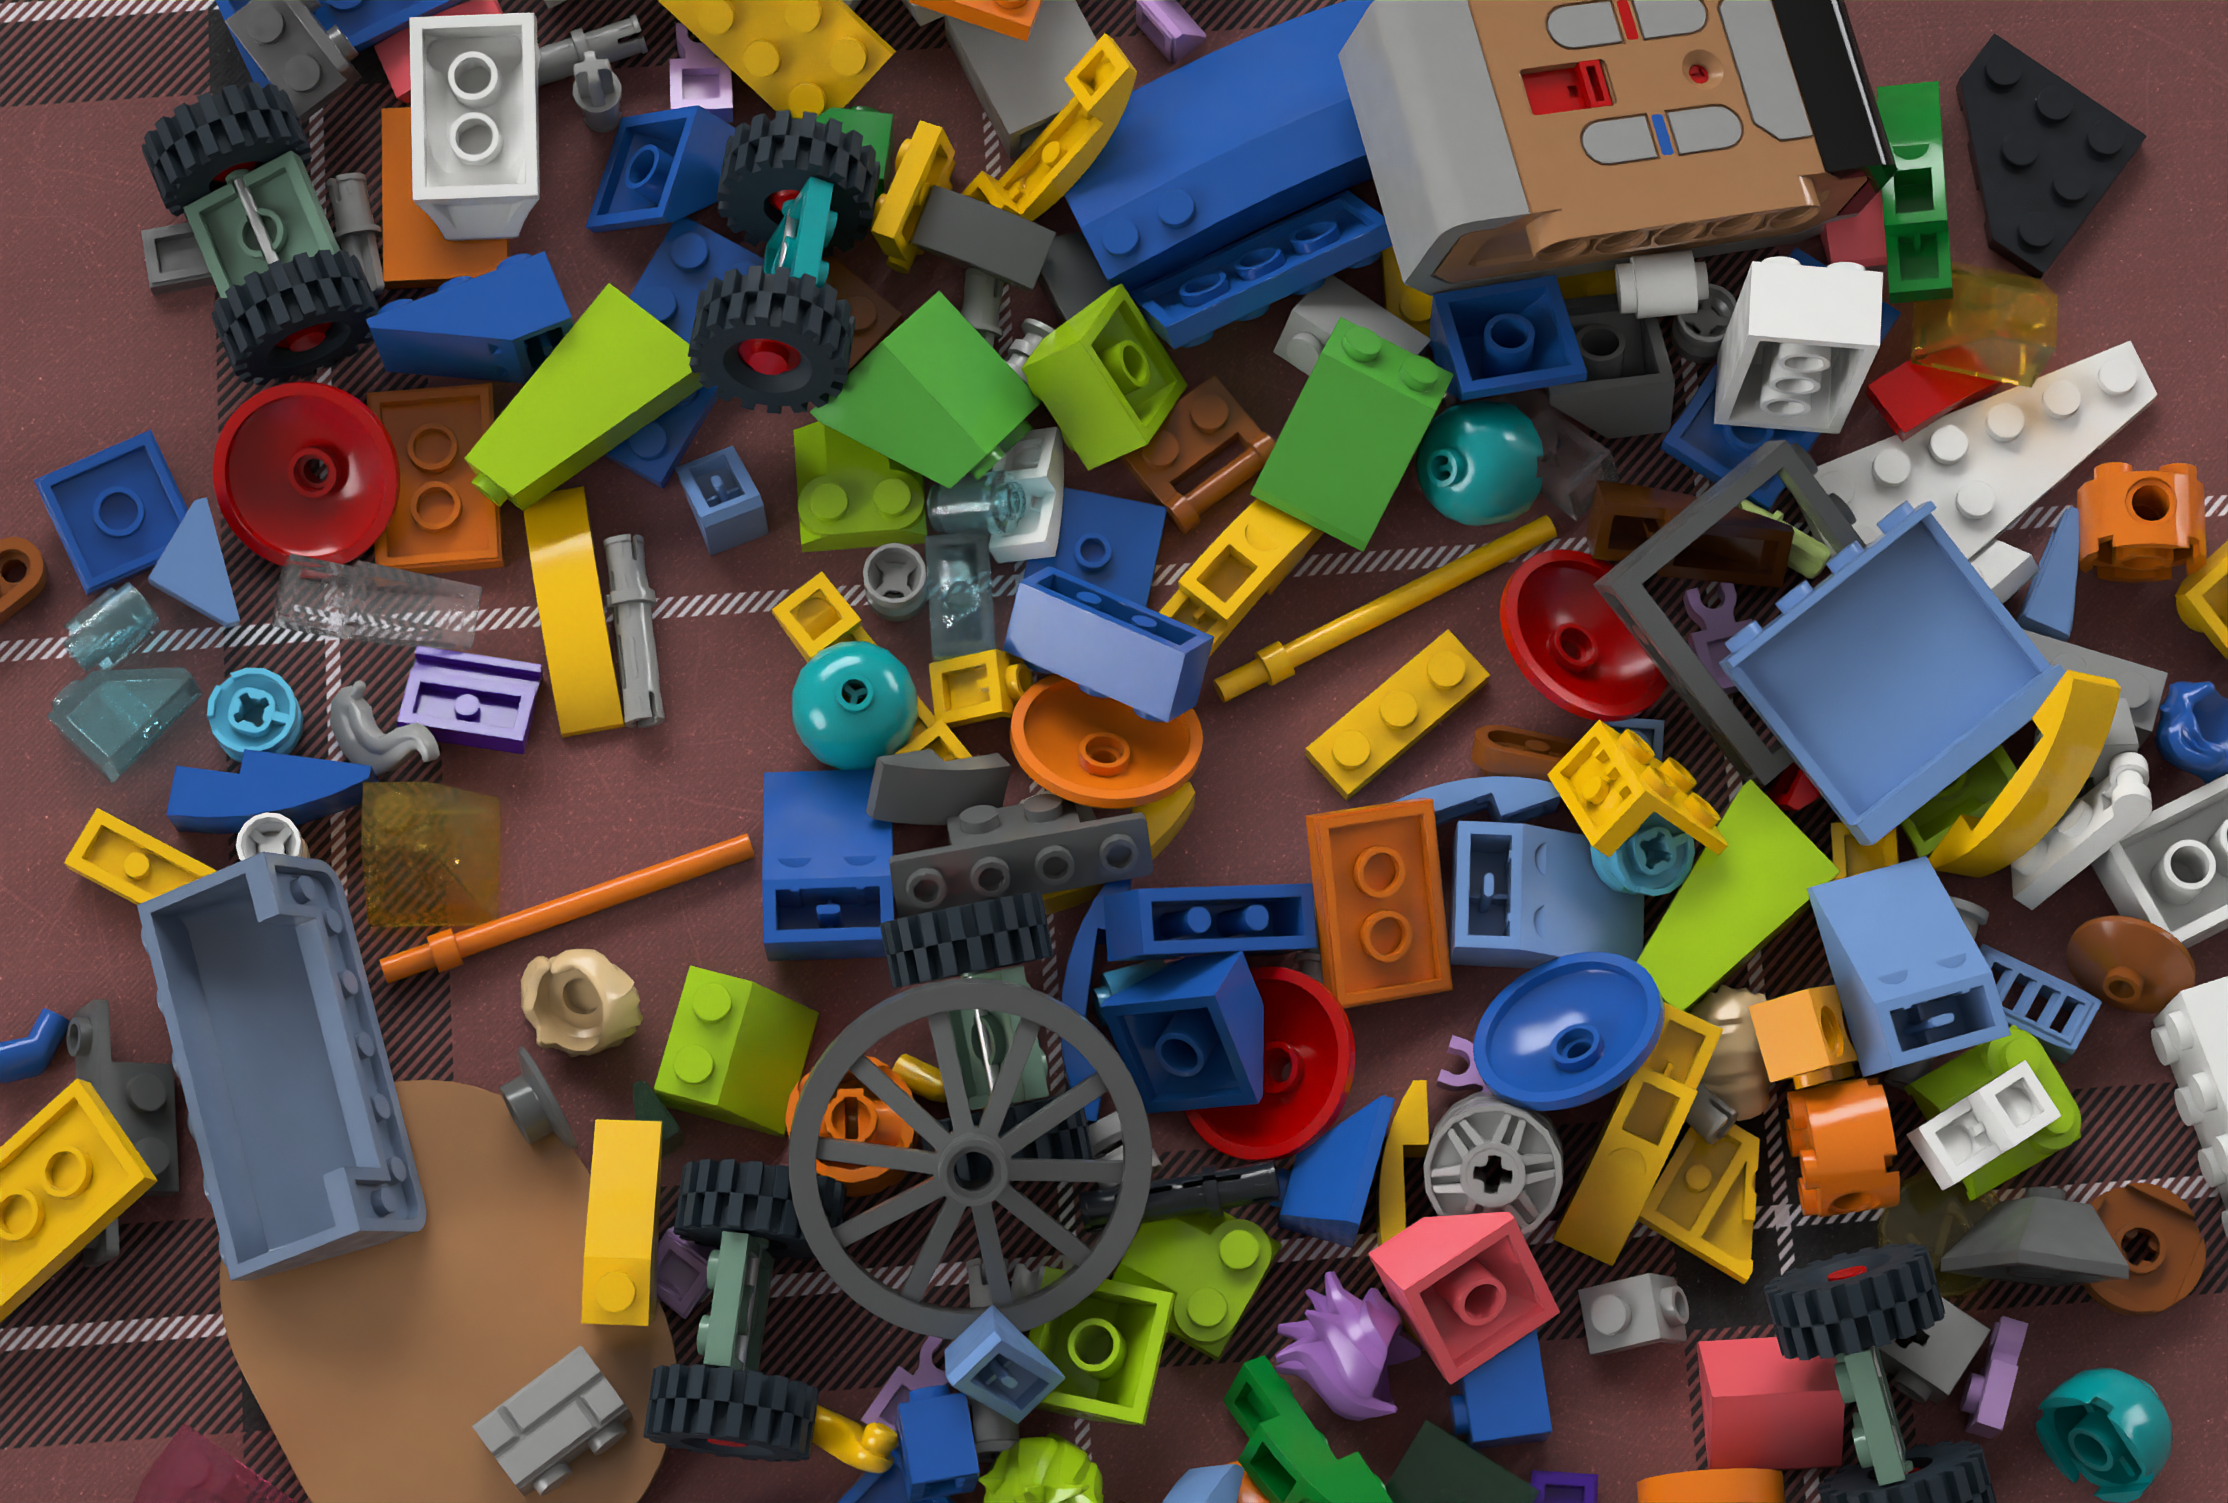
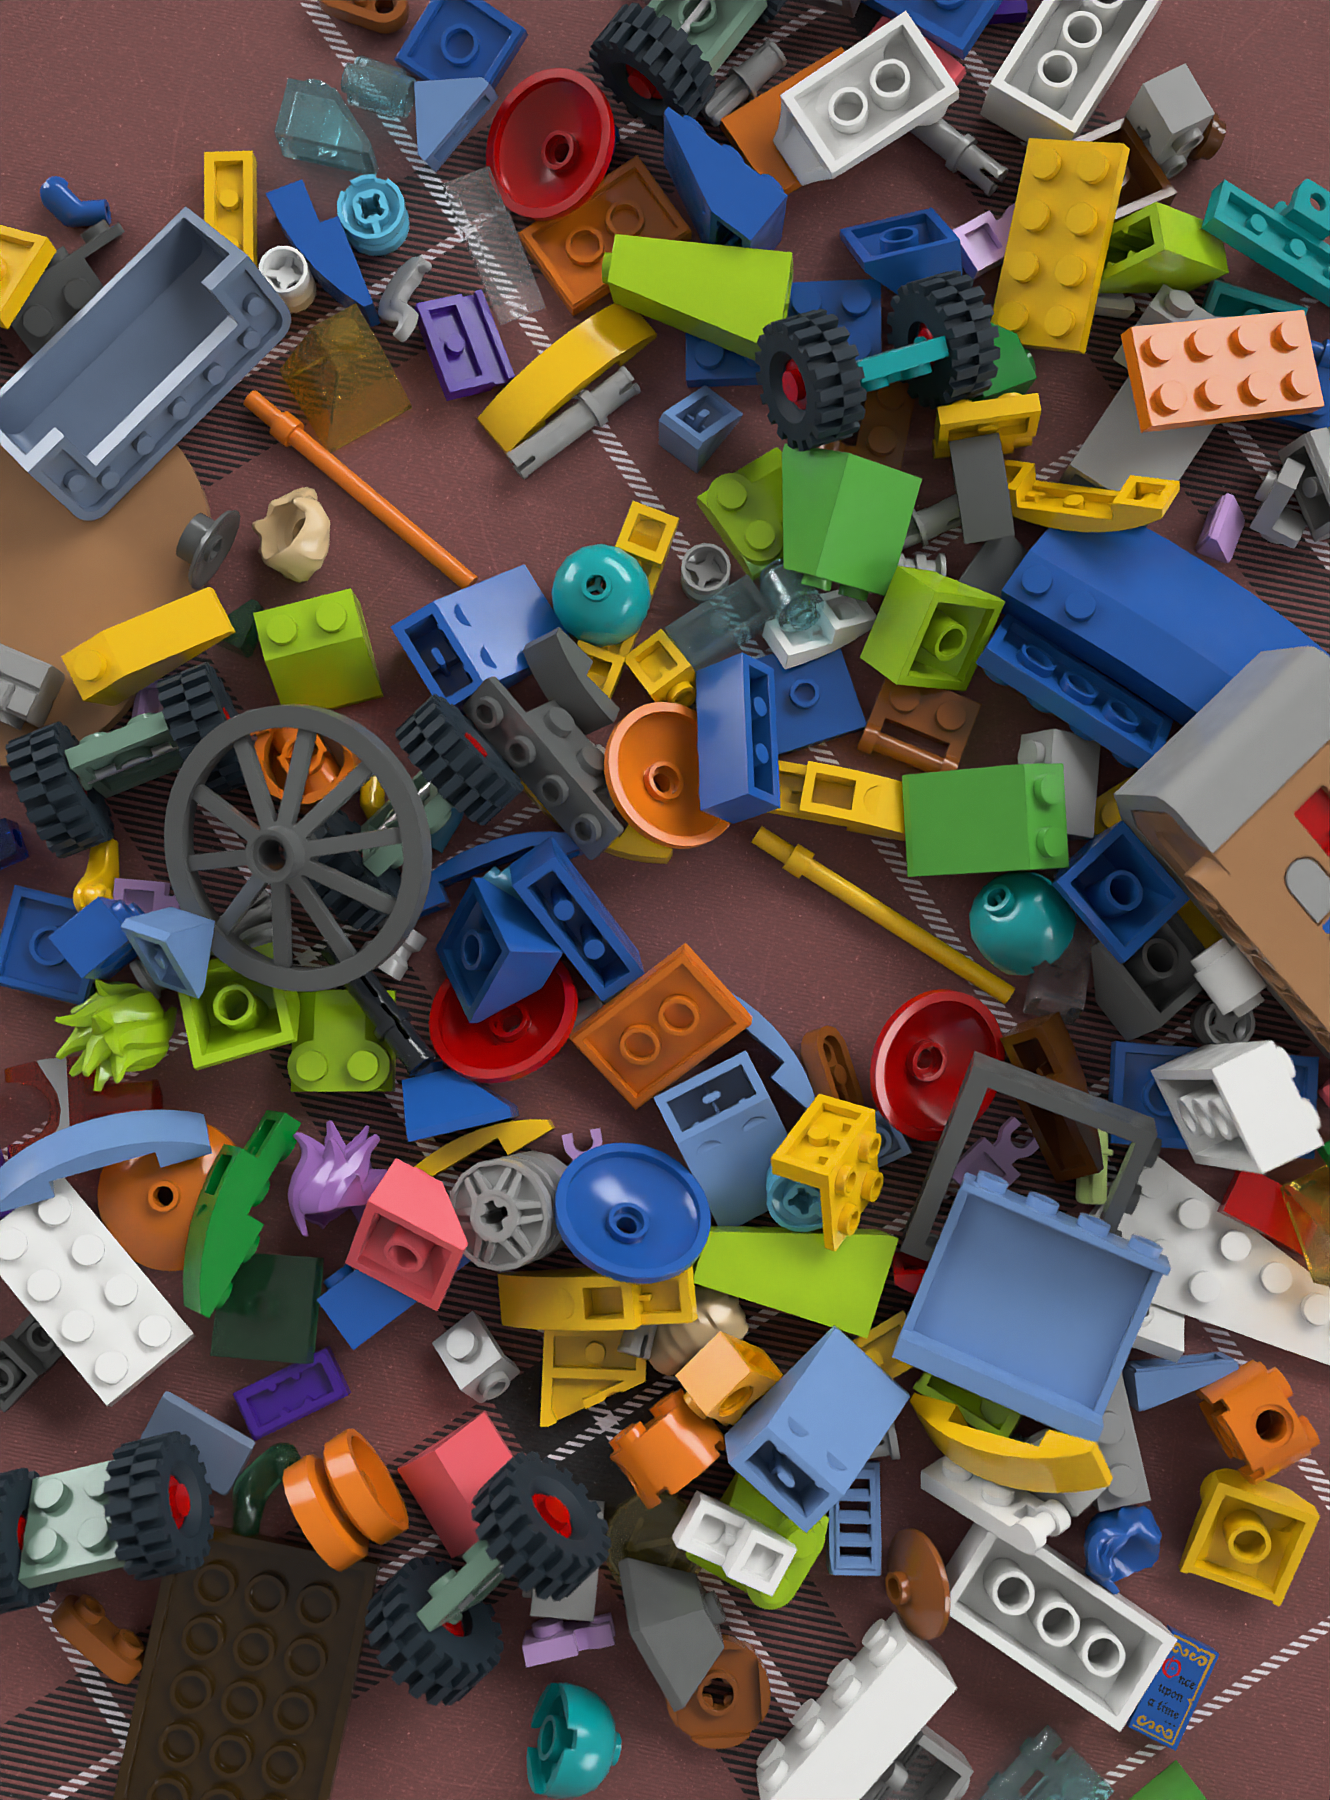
camera: 60 degrees right, 10 degrees up
(597, 93) = (934, 173): light grey axle -> none
(1397, 715) = (811, 964): yellow plate -> none

